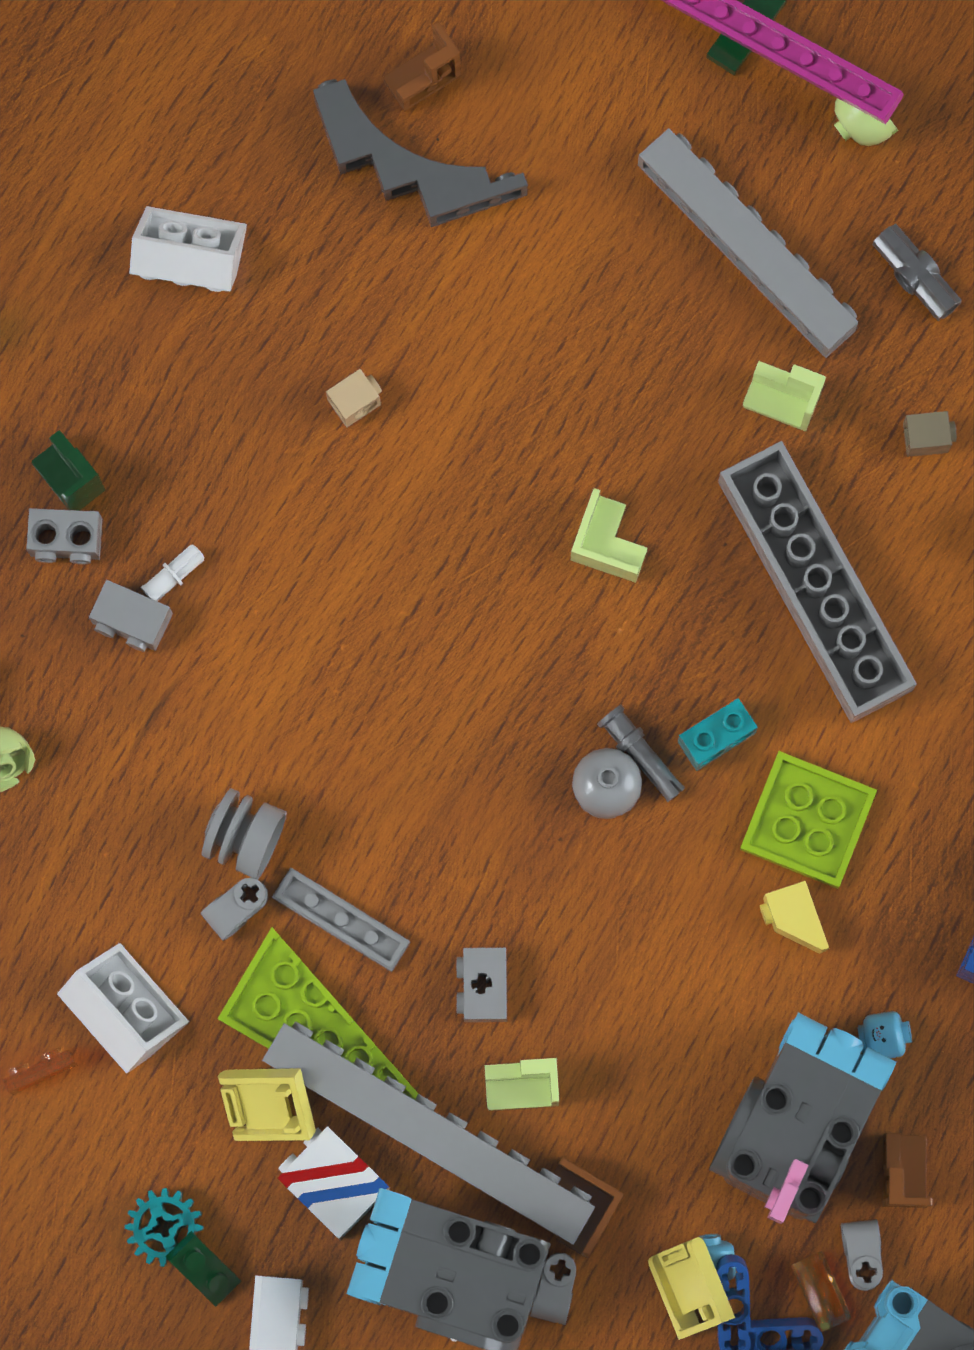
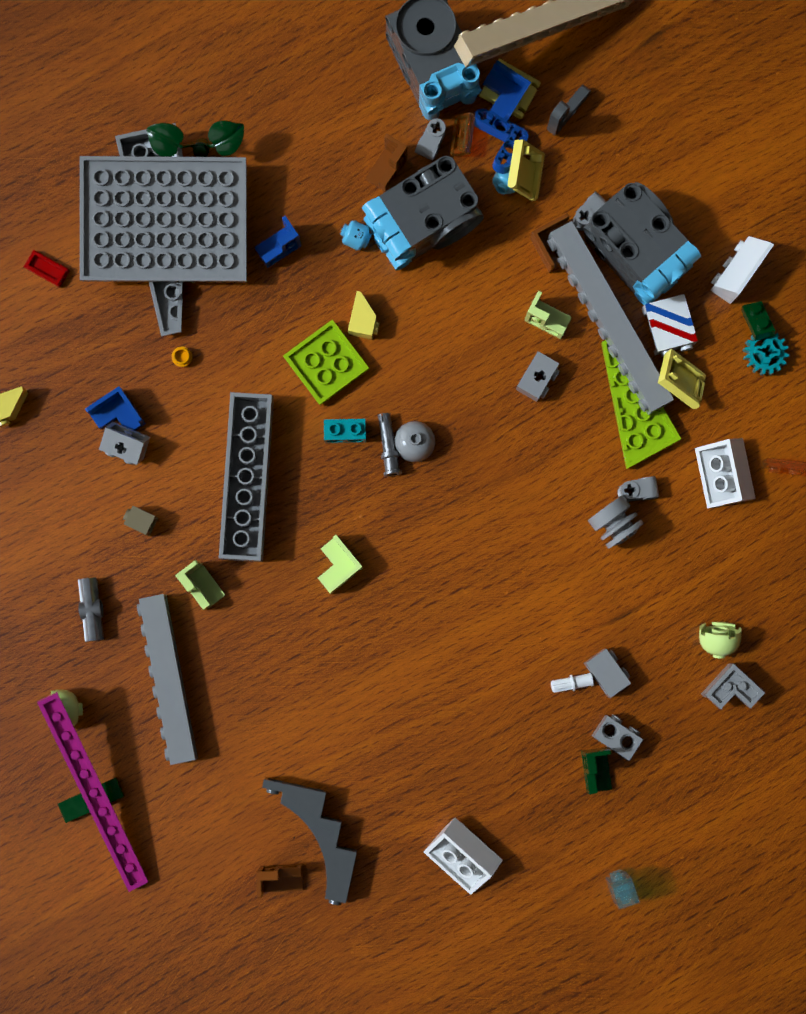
camera: 150 degrees left, 5 degrees up
(341, 919) = (589, 453): light grey tile -> none
(354, 397) = (422, 719): tan brick -> none
(781, 1199) = (460, 169): bright pink plate -> none

